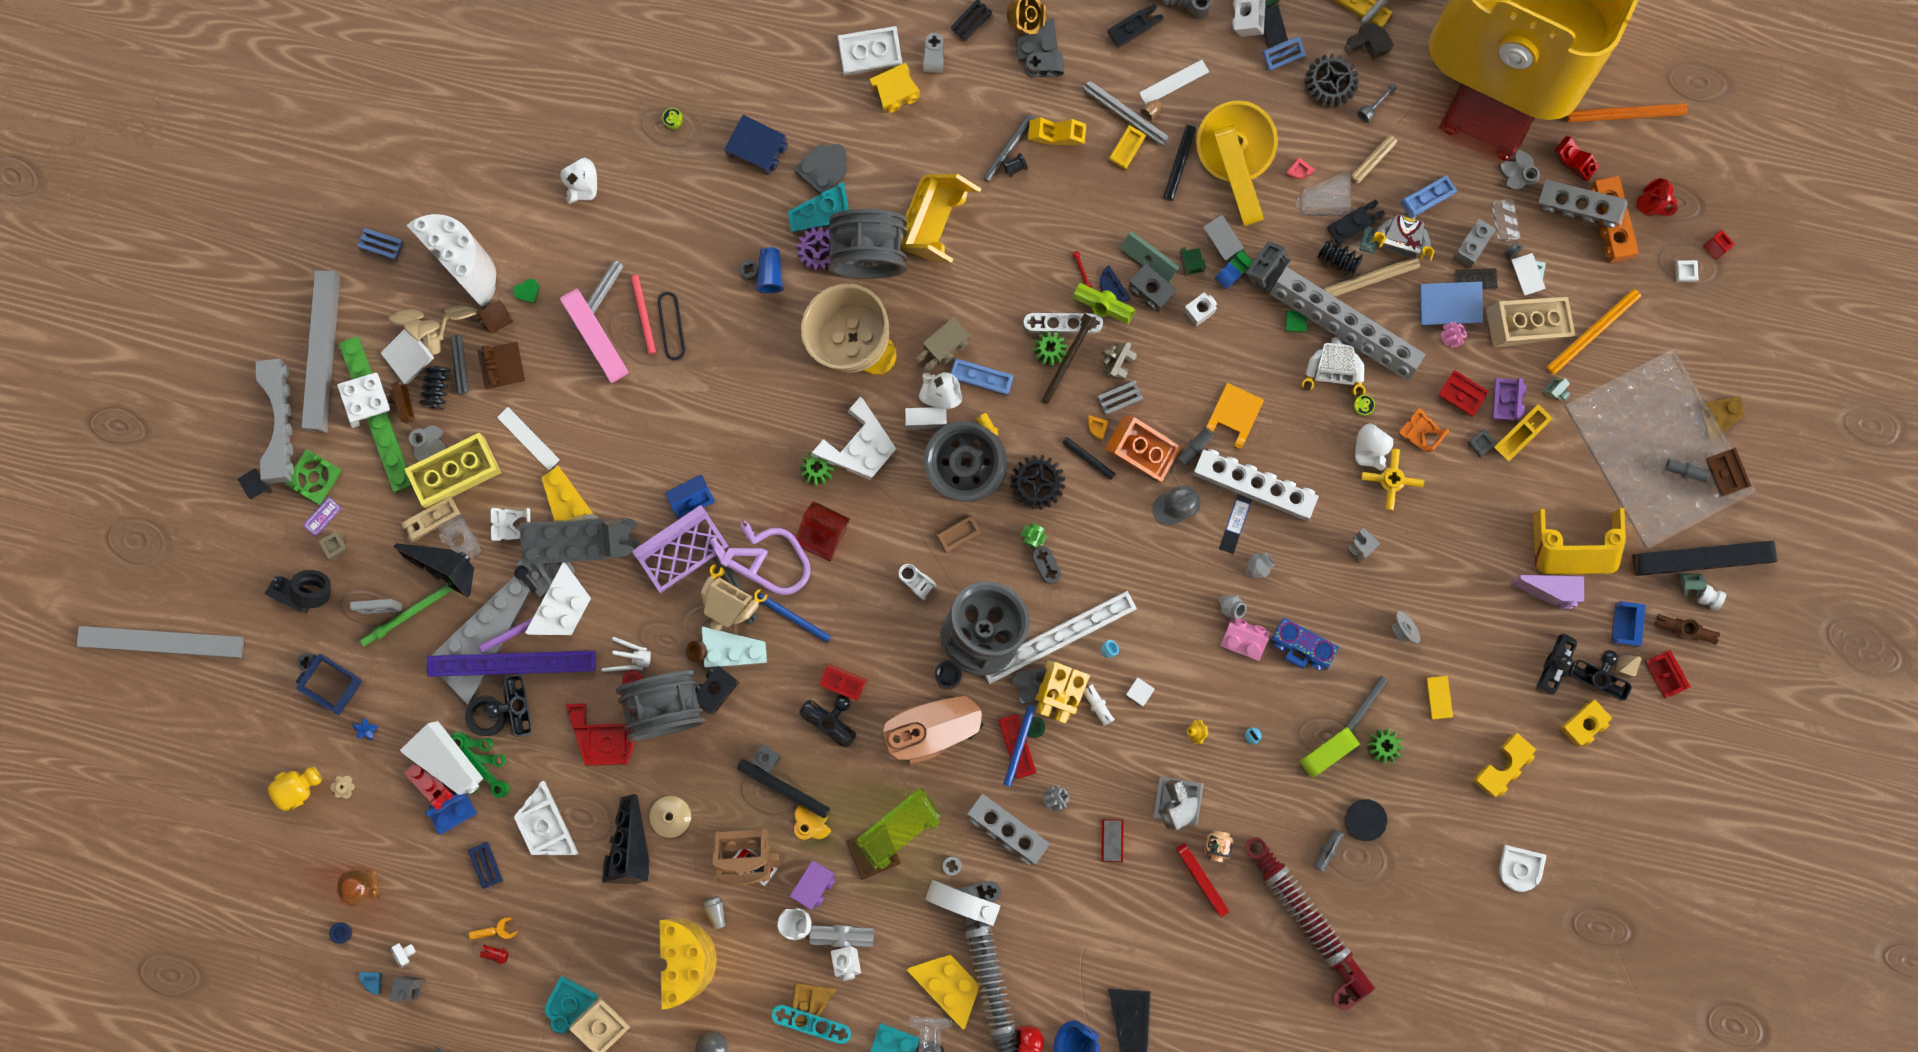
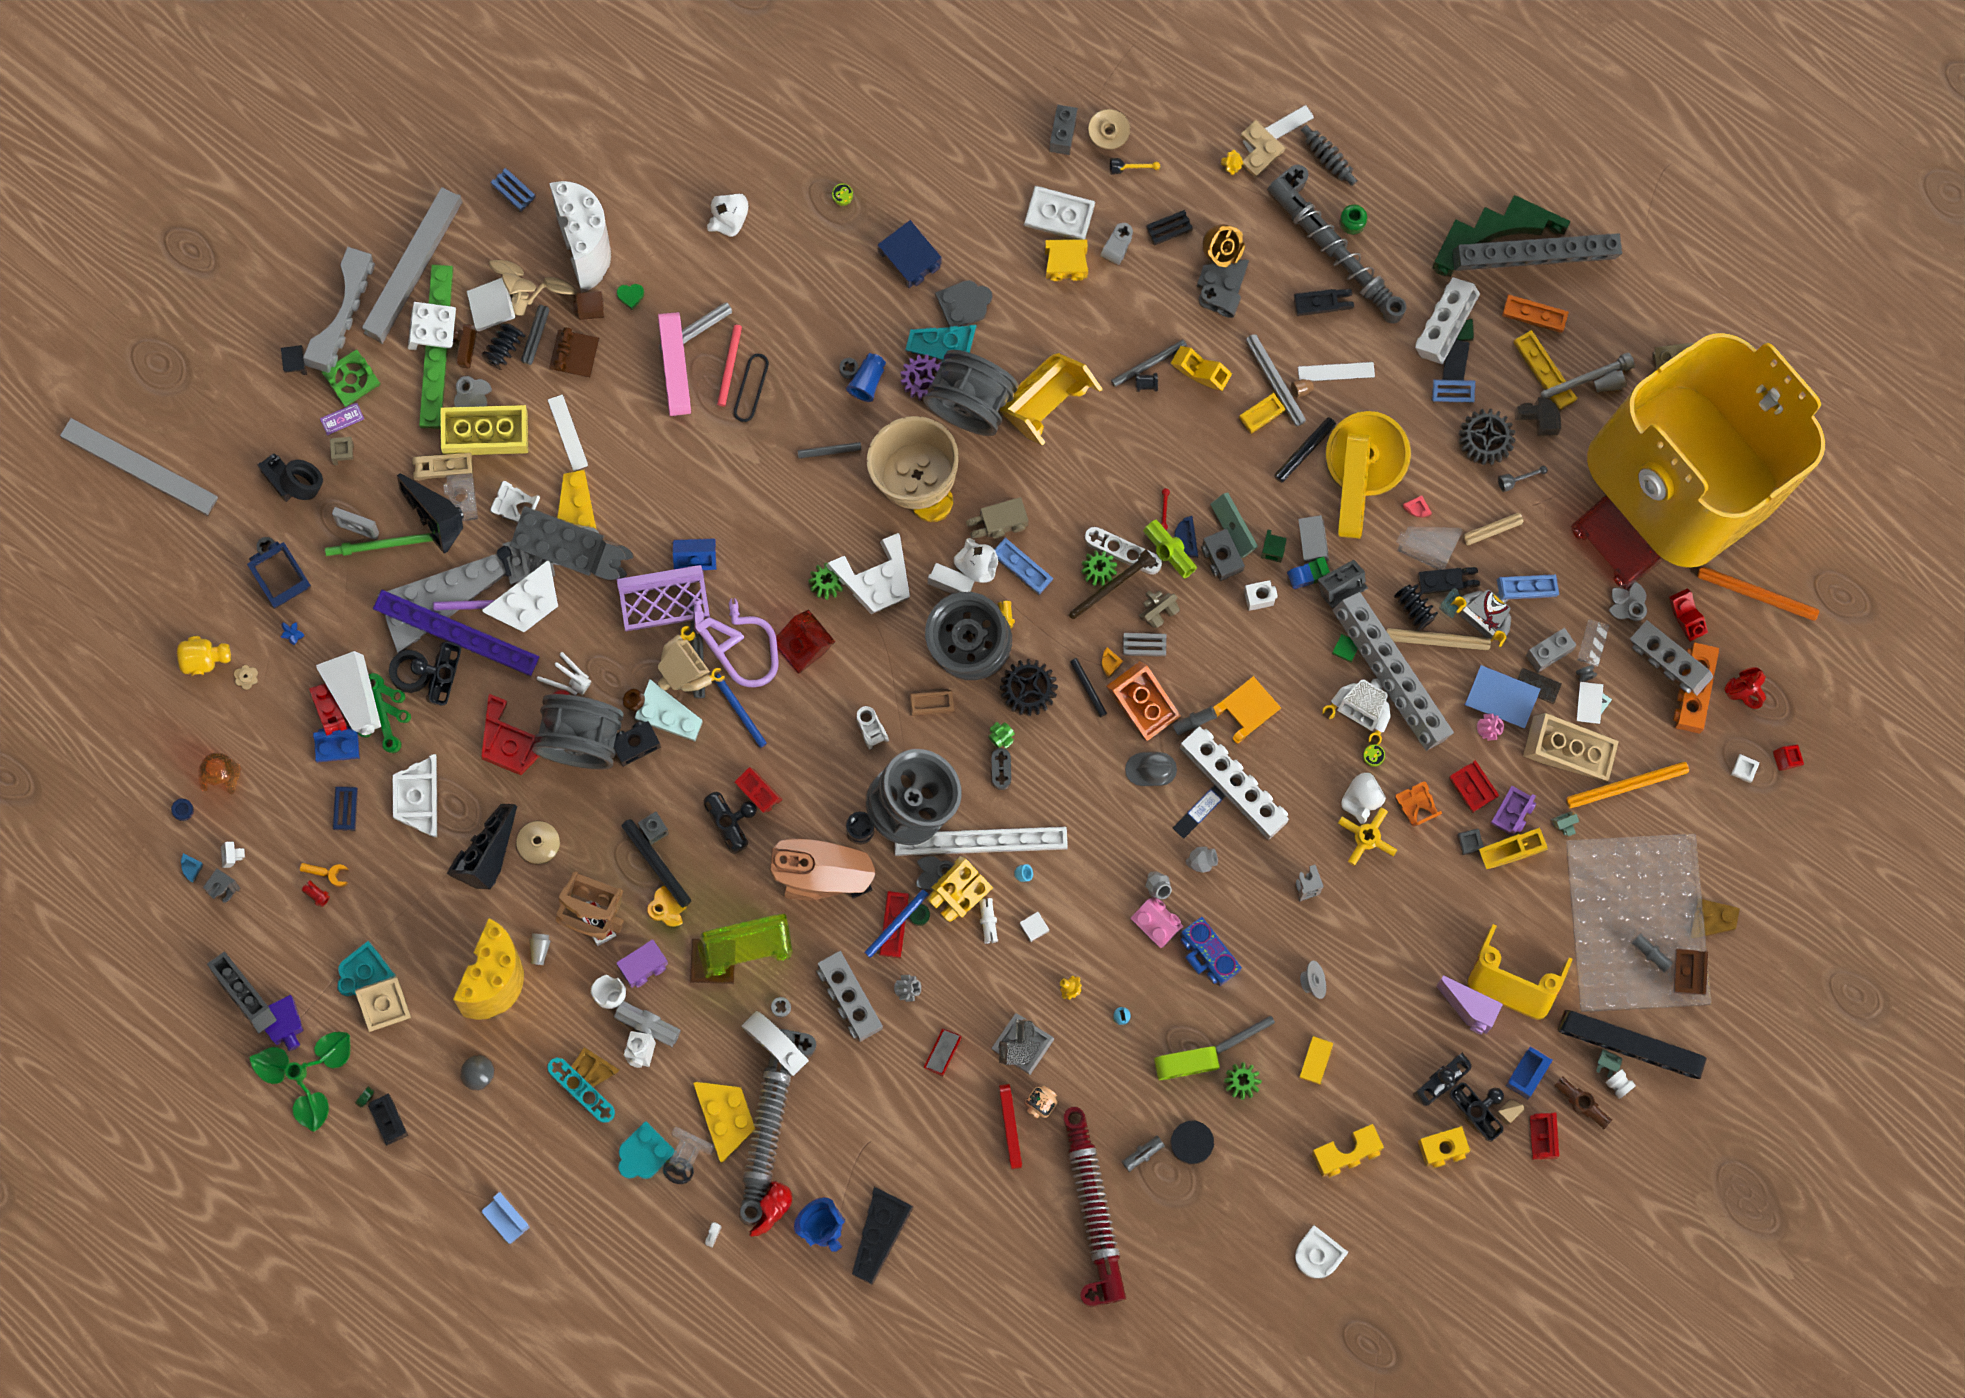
camera: 15 degrees right, 5 degrees down
(765, 350) = (829, 450): none -> dark grey bar

